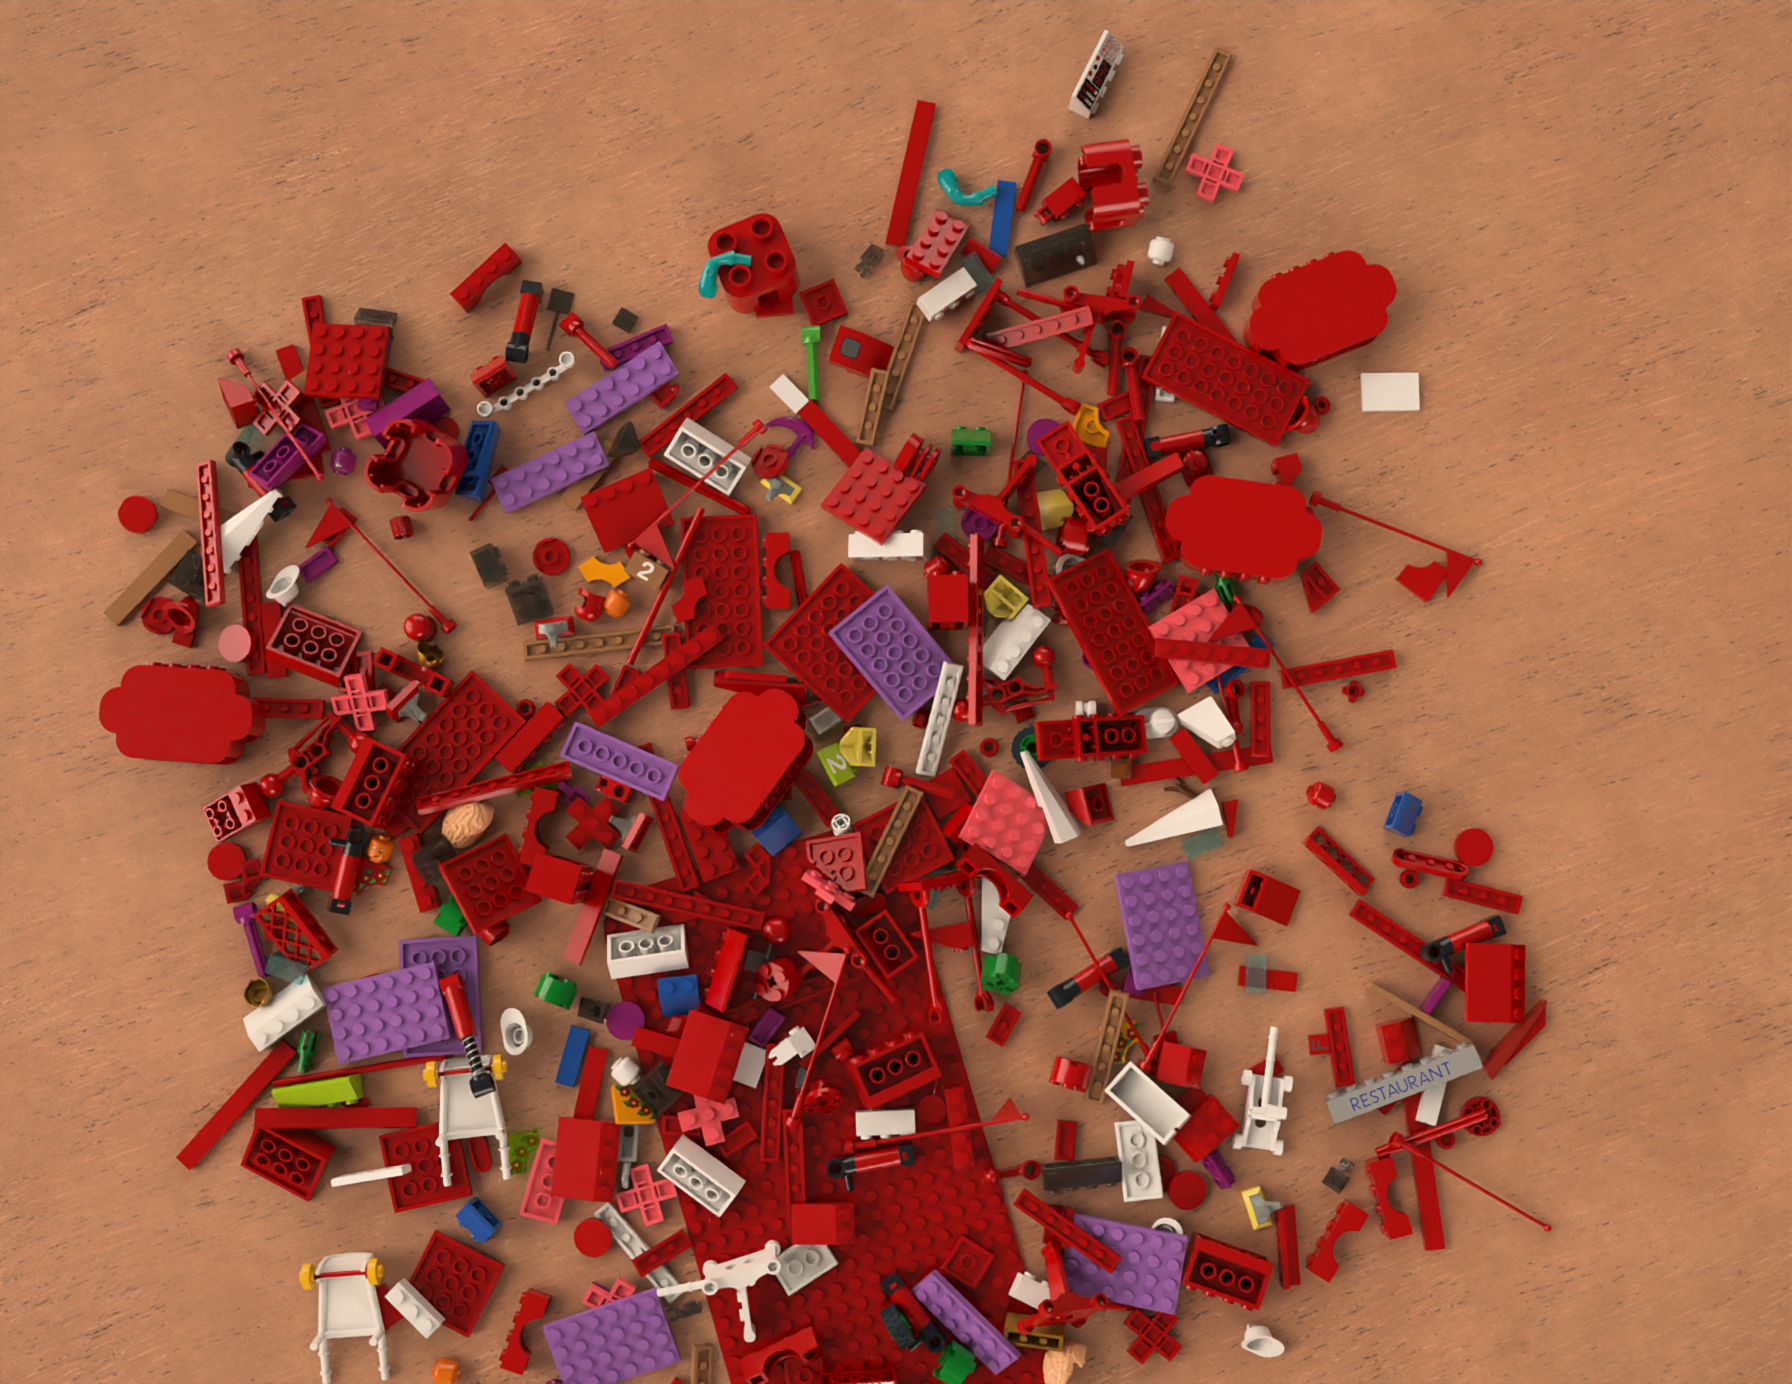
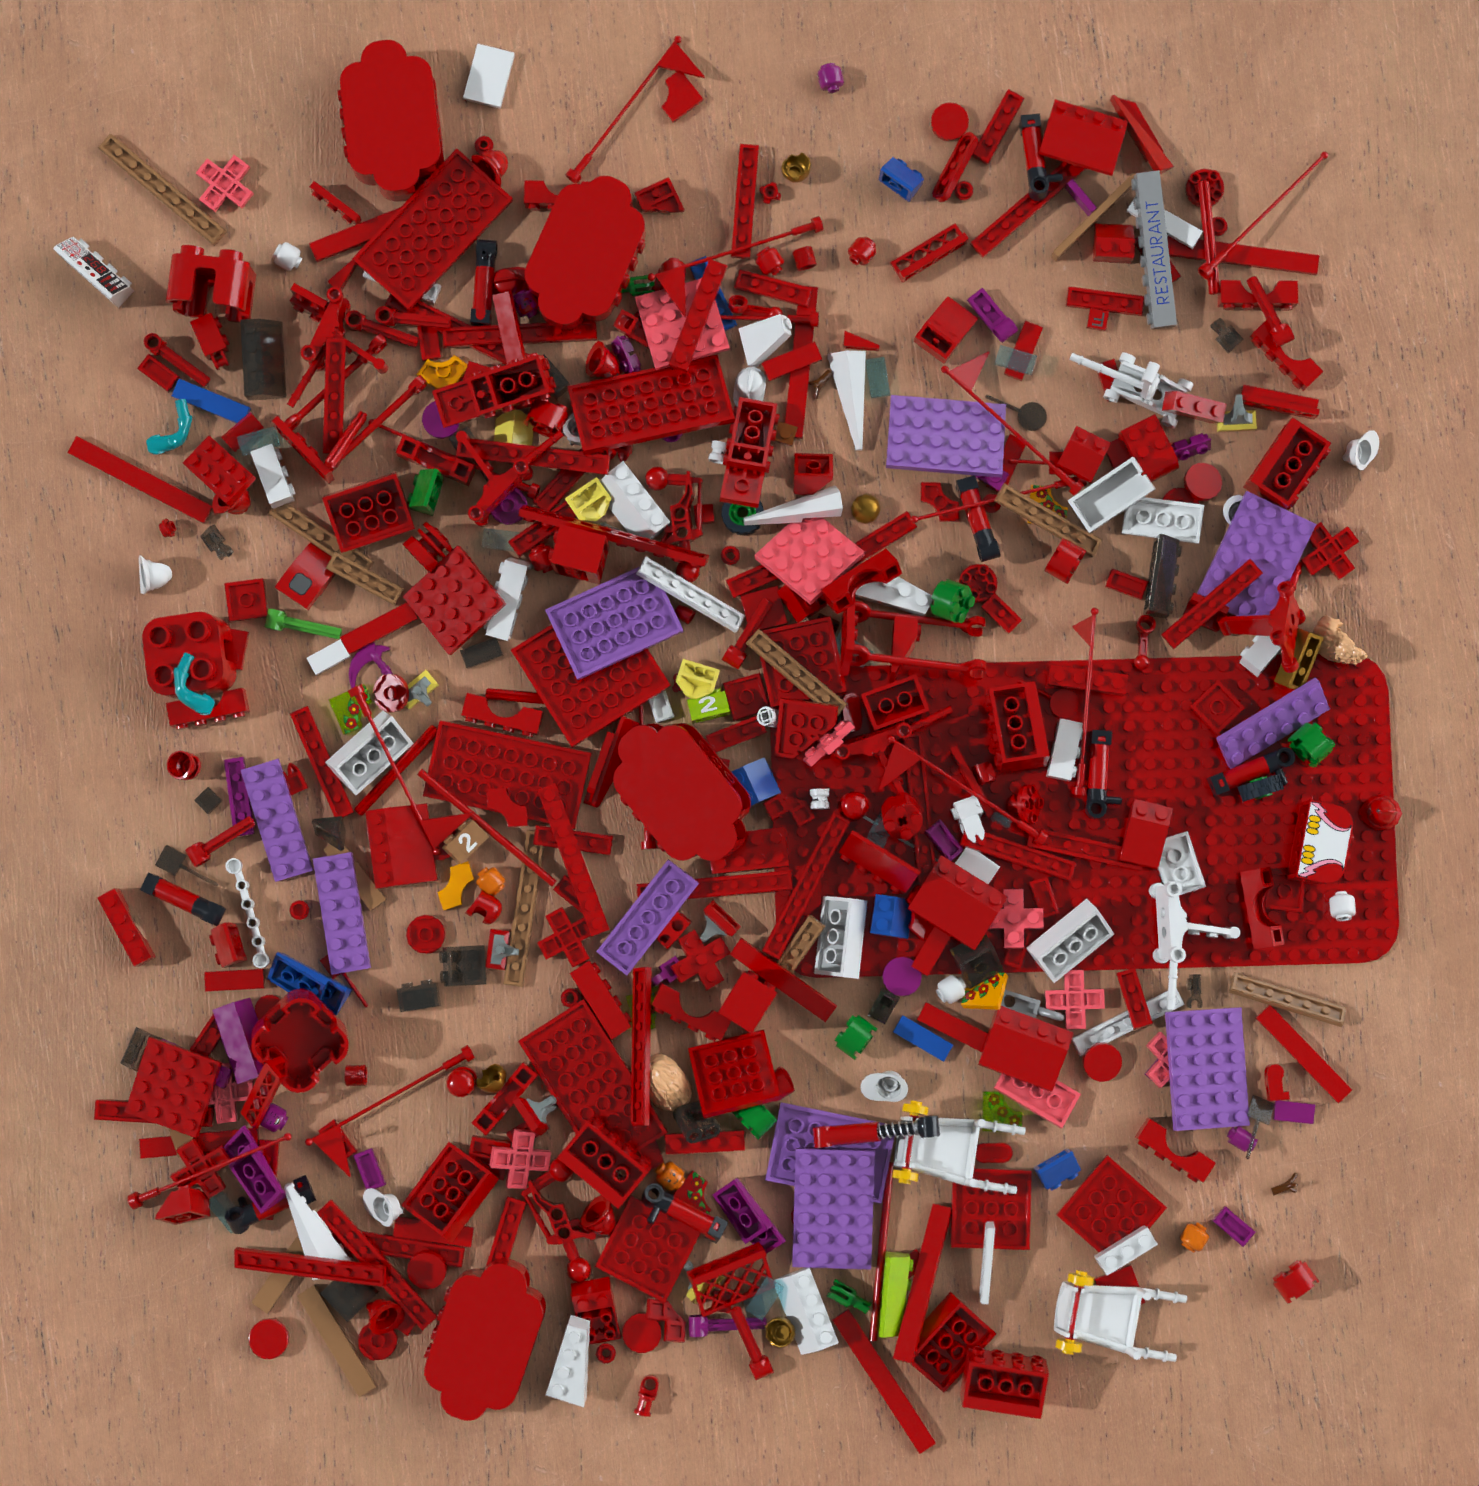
camera: 75 degrees left, 0 degrees up
(168, 881) = (646, 1395): none -> red connector
(175, 803) = (571, 1368): none -> white wedge
(194, 832) = (601, 1357): none -> red plate
(223, 981) = (759, 1363): none -> red axle
(234, 589) = (368, 1253): none -> red plate
(259, 1222) = (1004, 1382): none -> red brick
(360, 444) = (263, 1092): none -> red fence
(360, 934) = (747, 1216): none -> magenta slope
(463, 390) = (234, 980): none -> red tile
(544, 432) = (299, 910): none -> red plate
(650, 287) = (183, 765): none -> red helmet
(721, 315) = (232, 703): none -> red arch
(741, 425) = (348, 710): none -> clear neon green tile
(775, 895) = (819, 799): none -> white wheel
(822, 210) = (152, 575): none -> white piece
(831, 536) = (481, 653): none -> clear smoke tile
(857, 798) = (745, 696): none -> red tile
(871, 211) = (167, 528): none -> red plate
(936, 393) = (368, 512): none -> red slope
(1003, 442) = (430, 459): none -> red arch
(1016, 162) = (158, 372): none -> red tile
(1029, 995) = (980, 580): none -> red tile
(1070, 865) = (865, 508): none -> pearl gold hair
(1101, 927) = (933, 495): none -> red tile
(1177, 486) = (526, 304): none -> magenta head
(1206, 1003) = (1030, 416): none -> clear smoke piece
(1257, 1162) = (1194, 407): none -> brick
(1285, 708) = (769, 261): none -> red head
(1293, 939) = (992, 316): none -> magenta plate
(1298, 741) = (804, 258): none -> red piece
(1354, 1229) = (1279, 333): none -> red axle
(1384, 710) = (796, 167): none -> pearl gold hair
(1483, 719) = (830, 77): none -> magenta head

